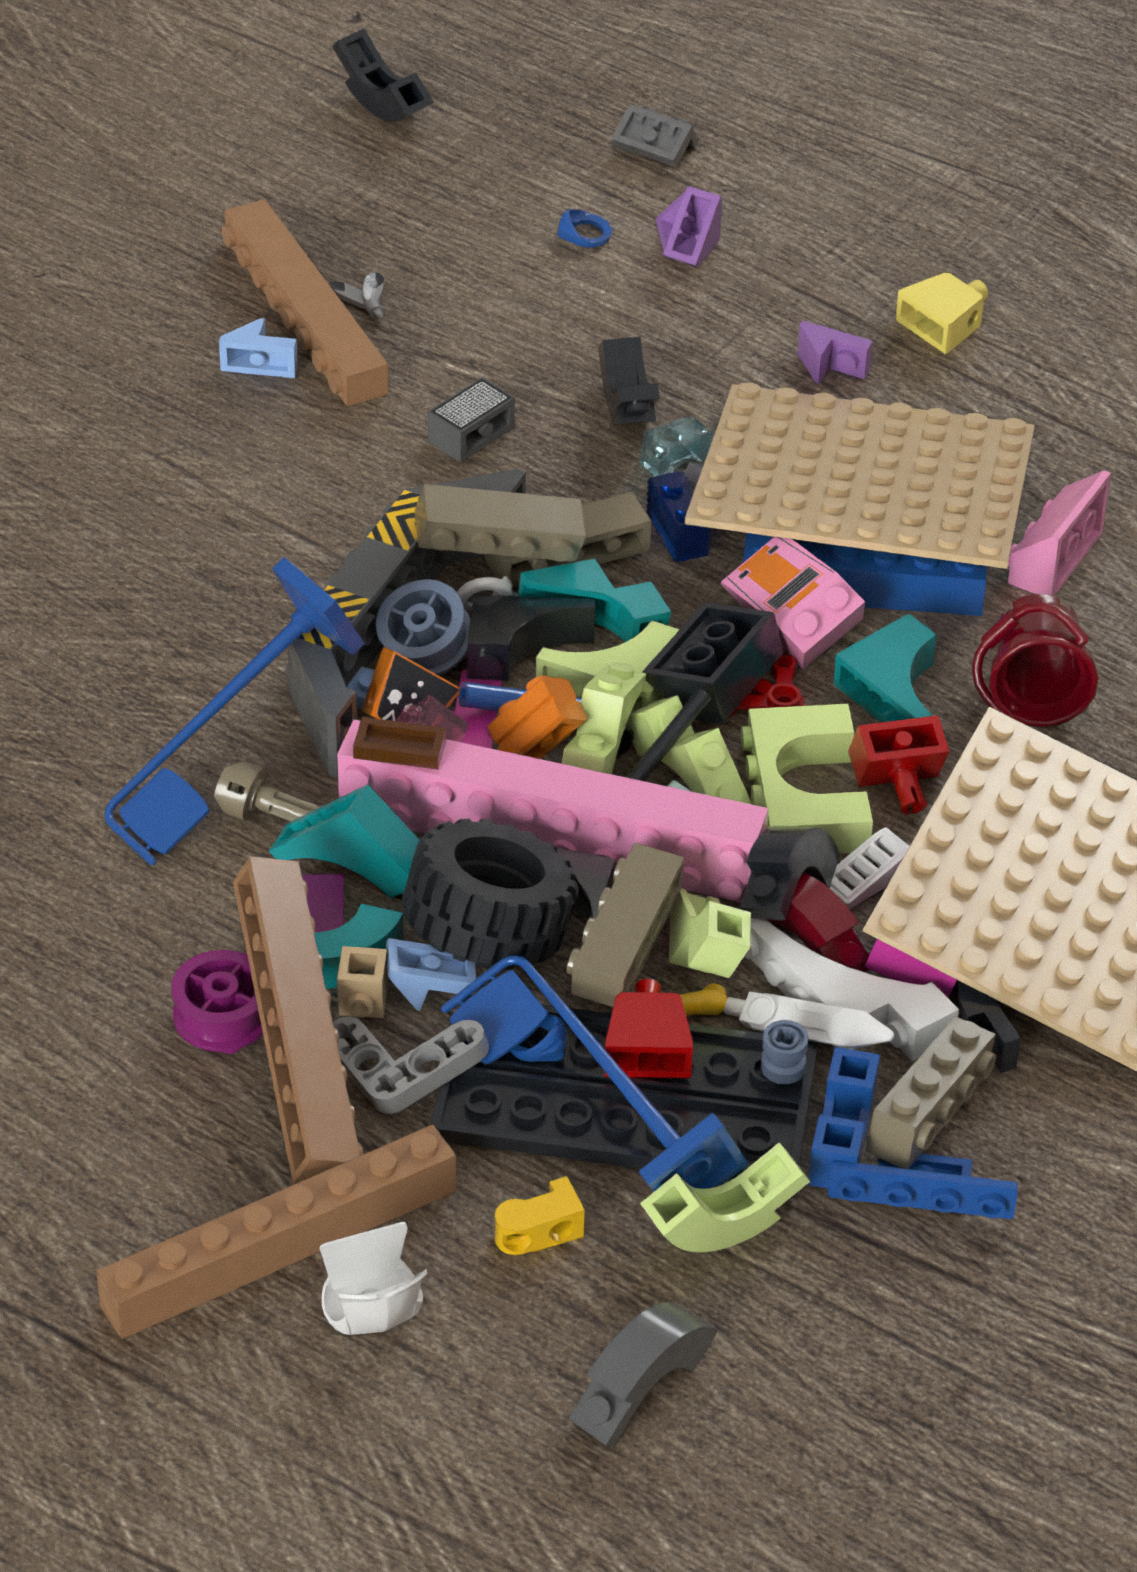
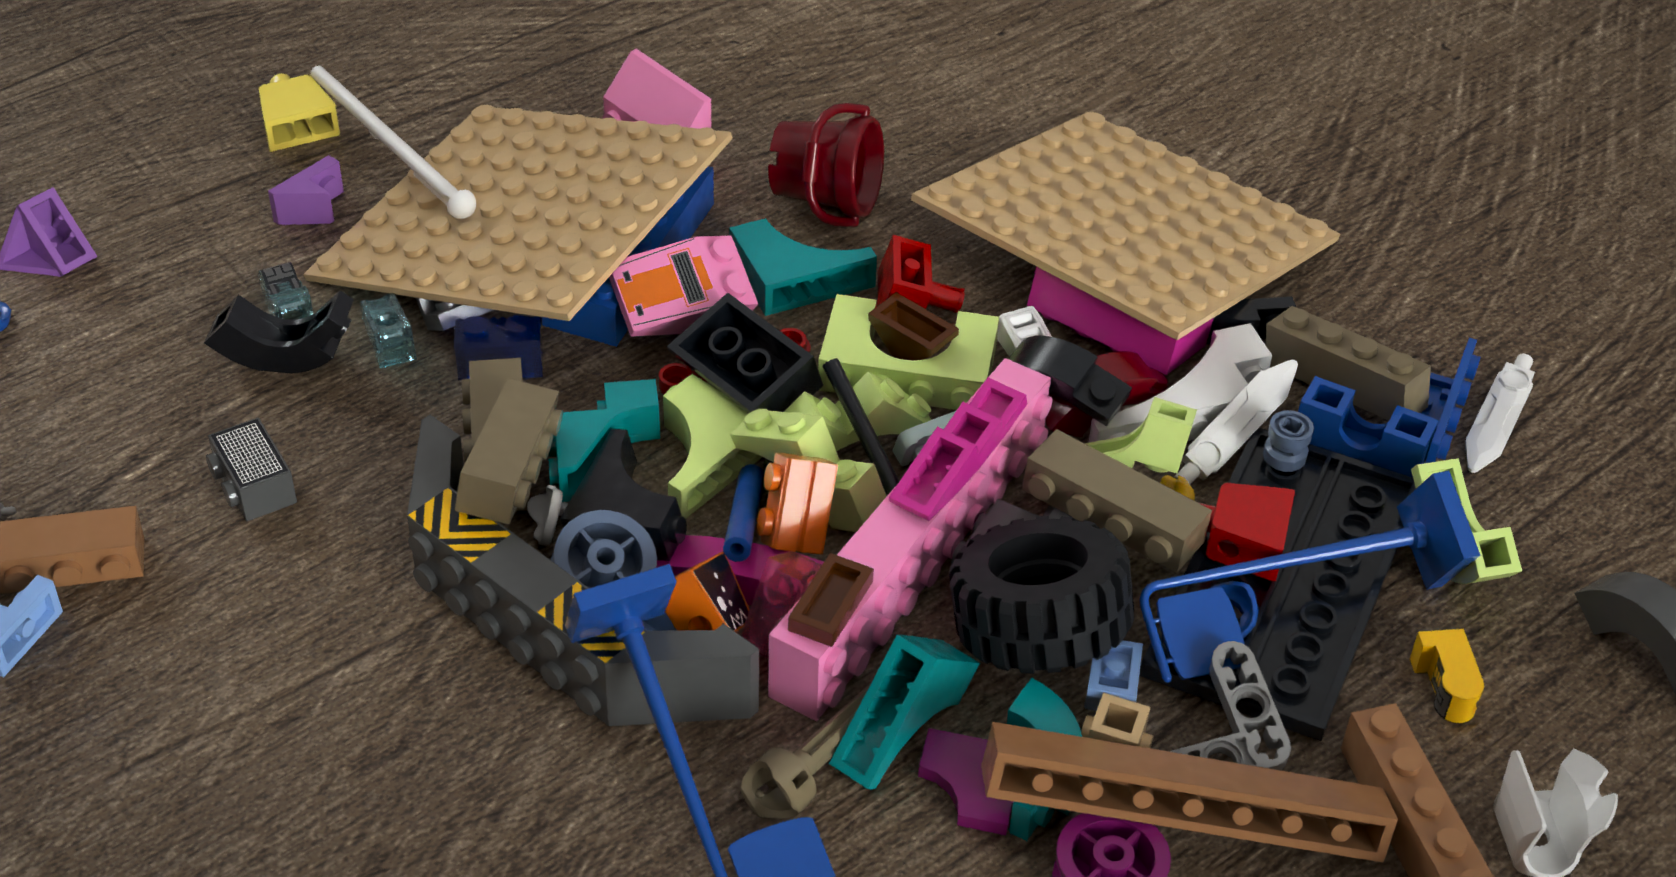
camera: 75 degrees left, 0 degrees up
(599, 785) = (958, 450): none -> dark pink slope
(688, 379) = (284, 291): none -> clear light blue leg
(819, 757) = (910, 329): none -> reddish brown slope
(830, 429) = (459, 203): none -> white bar
(955, 1250) = (1499, 413): none -> white piece

